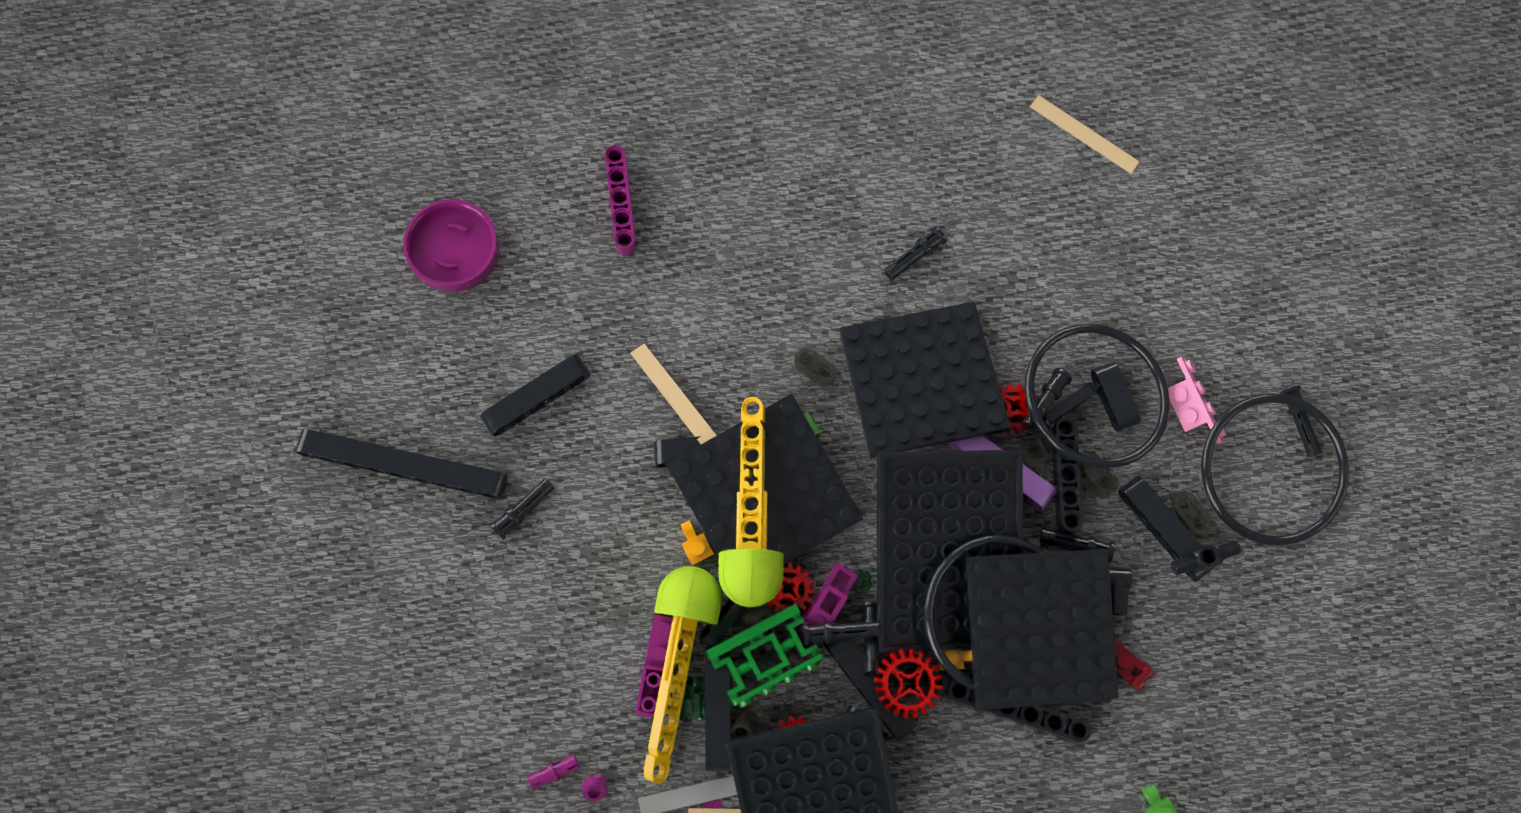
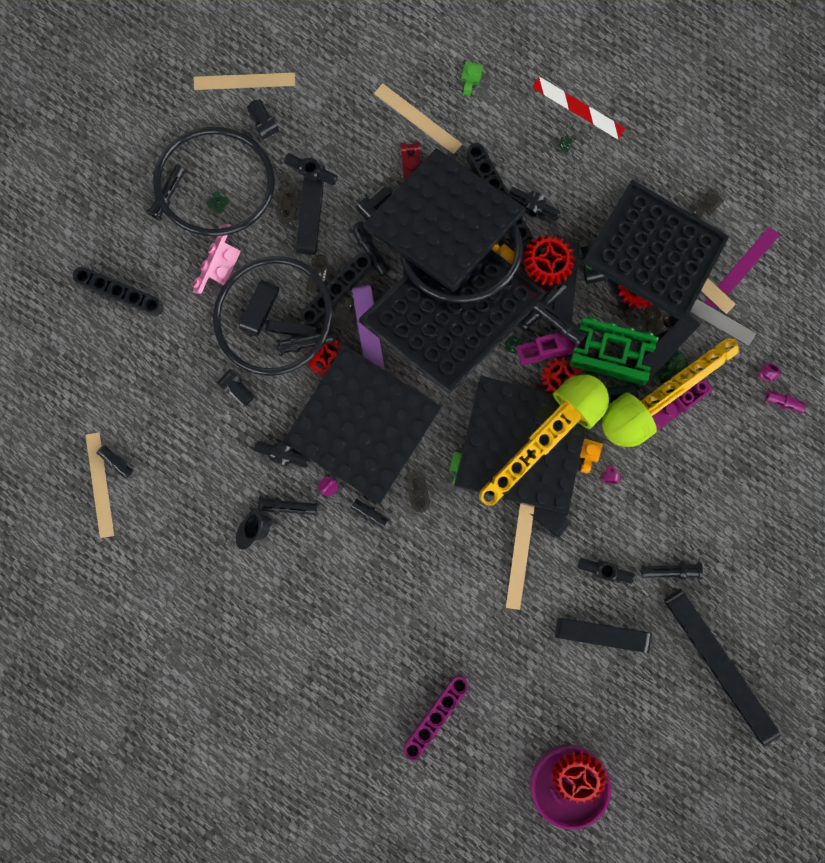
camera: 130 degrees left, 10 degrees up
(437, 256) = (575, 768): none -> red gear
(572, 458) = (615, 573): none -> black axle
(660, 537) = (610, 477): none -> magenta tile
(840, 312) = (369, 513): none -> black pin
(897, 303) = (328, 486): none -> magenta tile
(923, 210) = (253, 528): none -> black piece
(964, 291) = (281, 454): none -> black axle
(974, 736) = (534, 203): none -> black axle
(1066, 310) = (232, 384): none -> black piece
(1092, 160) = (114, 461): none -> black pin
(1164, 717) = (418, 118): none -> tan sticker
(1244, 458) = (219, 208): none -> clear green plate
(1252, 290) = (110, 287): none -> black beam
(1290, 568) = (263, 121): none -> black piece
(1352, 594) = (244, 81): none -> tan sticker

